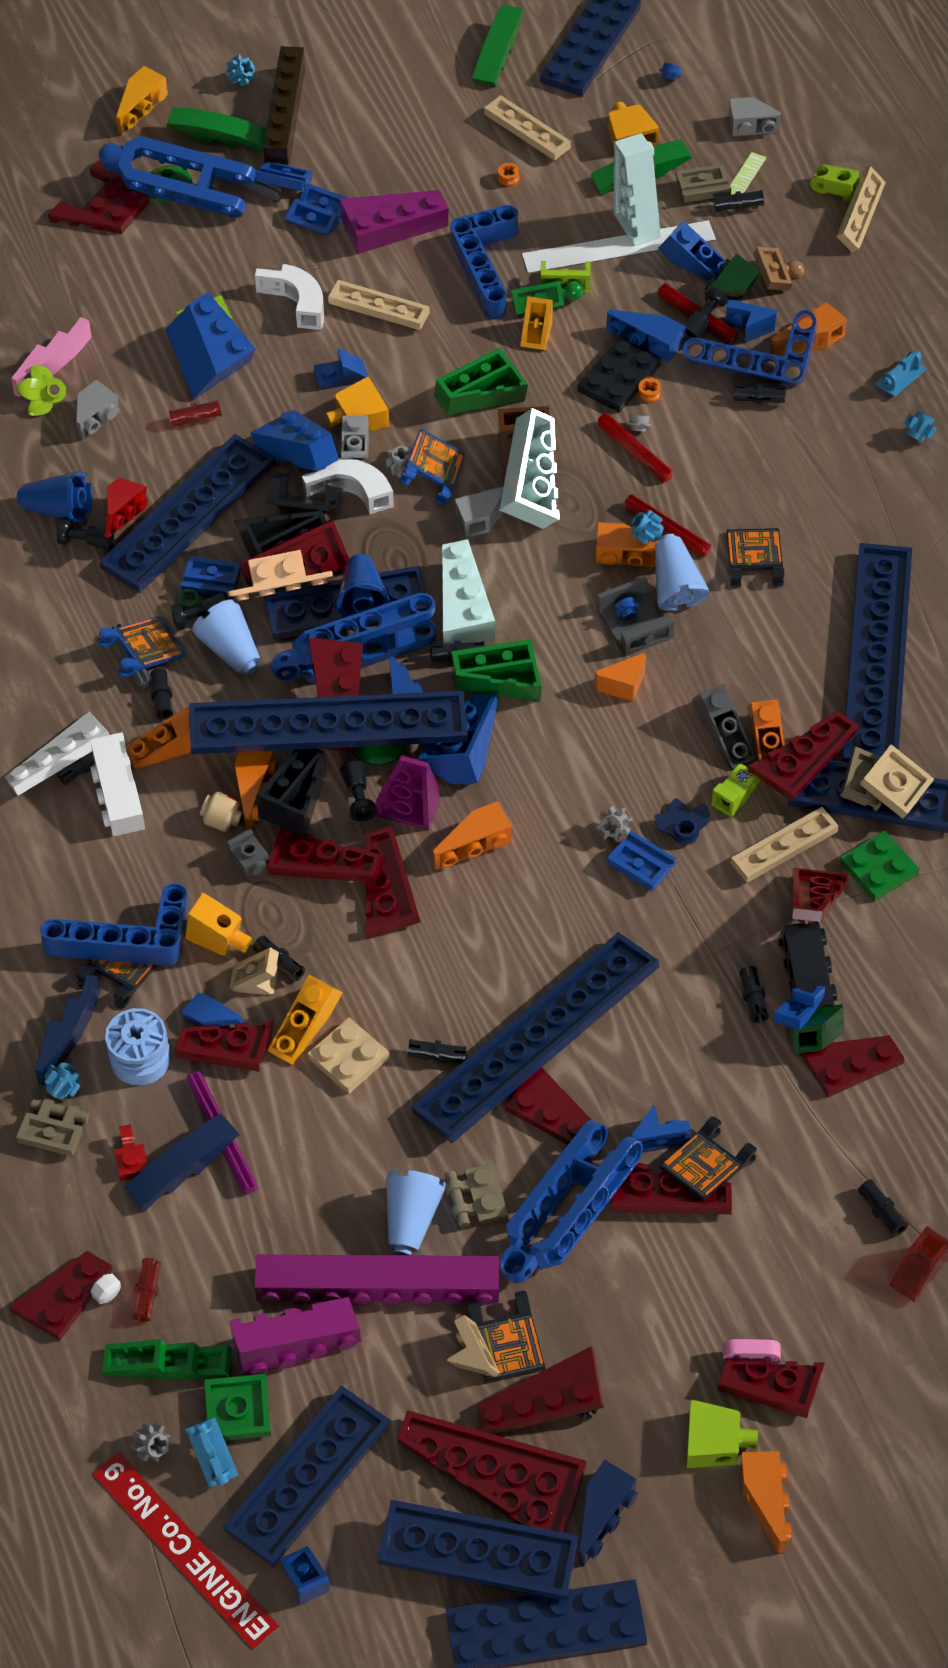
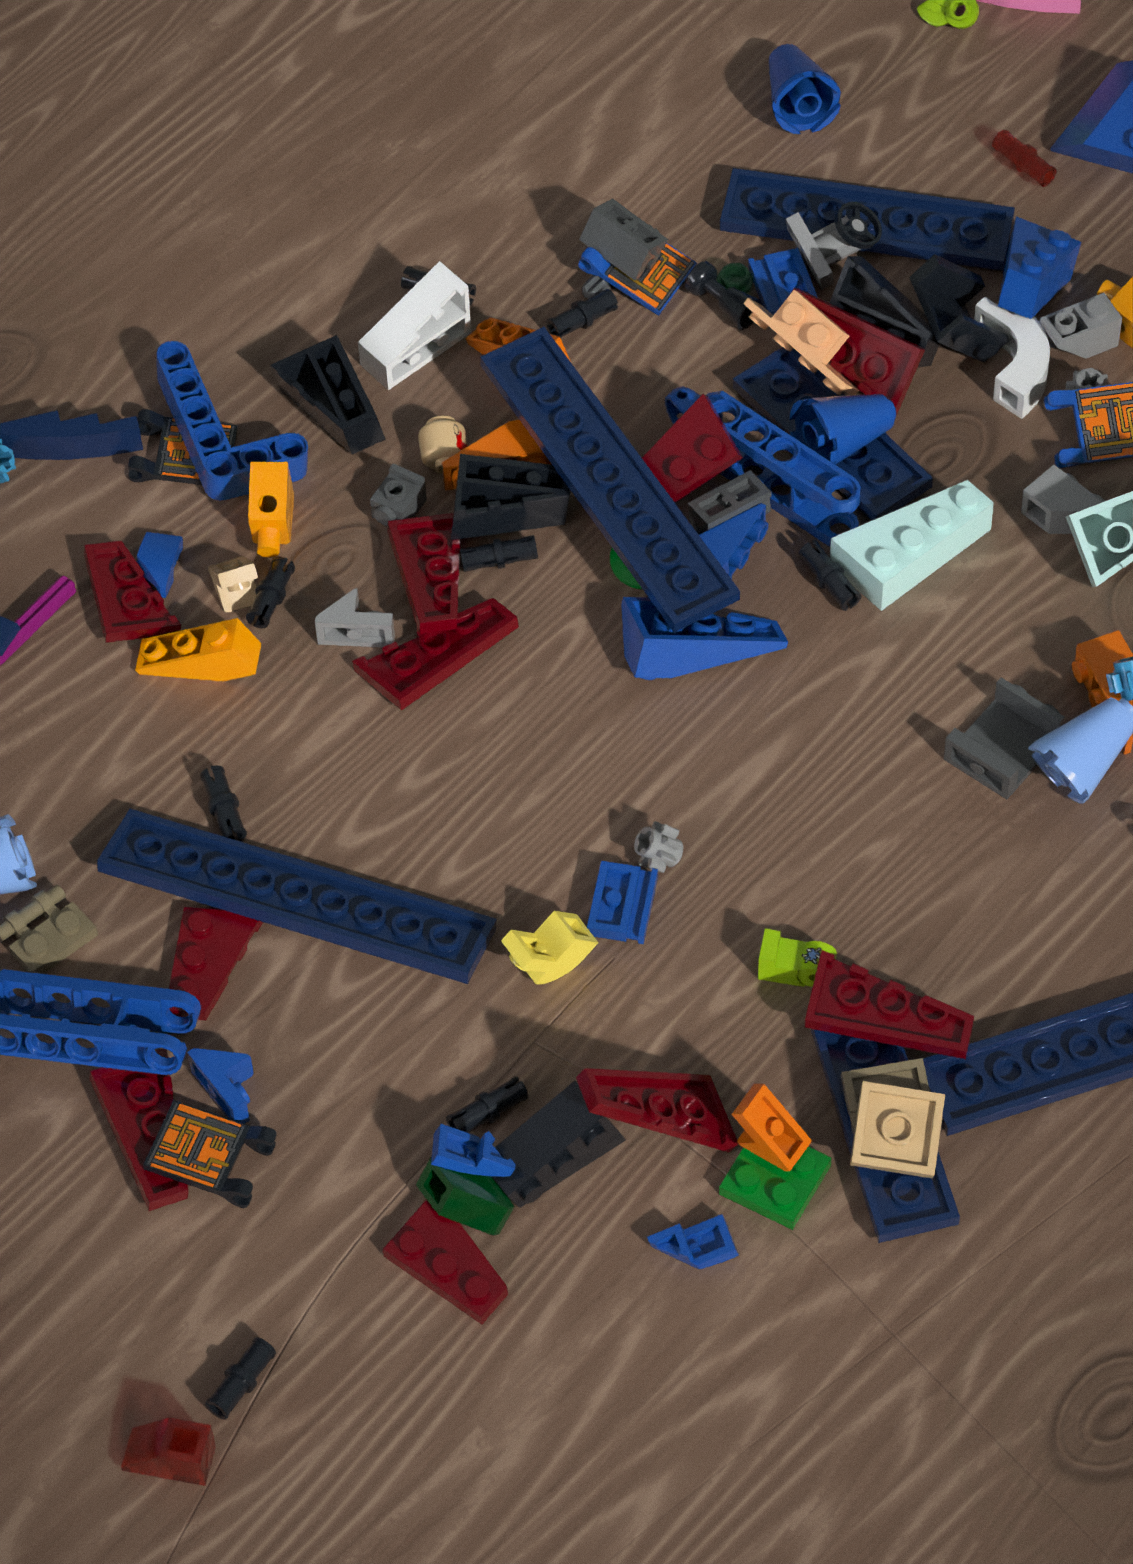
camera: 65 degrees right, 0 degrees up
(57, 754) = (422, 254): white wing -> none
(94, 408) = (958, 60): light grey slope -> none
(94, 535) = (771, 151): black piece -> none
(123, 503) = (819, 144): red slope -> none
(128, 639) = (623, 238): none -> dark grey hinge
(138, 1046) = (67, 507): light blue wheel -> none
(142, 854) = (330, 393): none -> black wedge
(199, 534) = (834, 240): none -> light grey piece
(228, 637) = (696, 335): light blue cone -> none
(329, 815) = (499, 553): none -> black pin
(337, 922) = (347, 626): none -> light grey slope
(348, 1055) = (176, 721): tan plate -> none
(354, 777) = (566, 555): black piece -> none
(377, 671) = (728, 502): none -> dark grey hinge
(409, 794) = (564, 613): magenta wedge -> none
(477, 833) = (558, 708): orange slope -> none
(499, 669) = (820, 626): green wedge -> none
(622, 677) = (899, 767): orange slope -> none
(627, 608) = (1008, 723): blue plate -> none
(658, 909) = (553, 948): none -> light yellow brick
(682, 819) = (717, 921): dark blue plate -> none
(724, 725) = (887, 907): dark grey slope -> none
(765, 727) = (910, 952): orange slope -> none
(784, 844) = (741, 1051): tan plate -> none
(860, 847) = (770, 1129): none -> orange slope
(907, 923) = (697, 1245): none -> blue slope

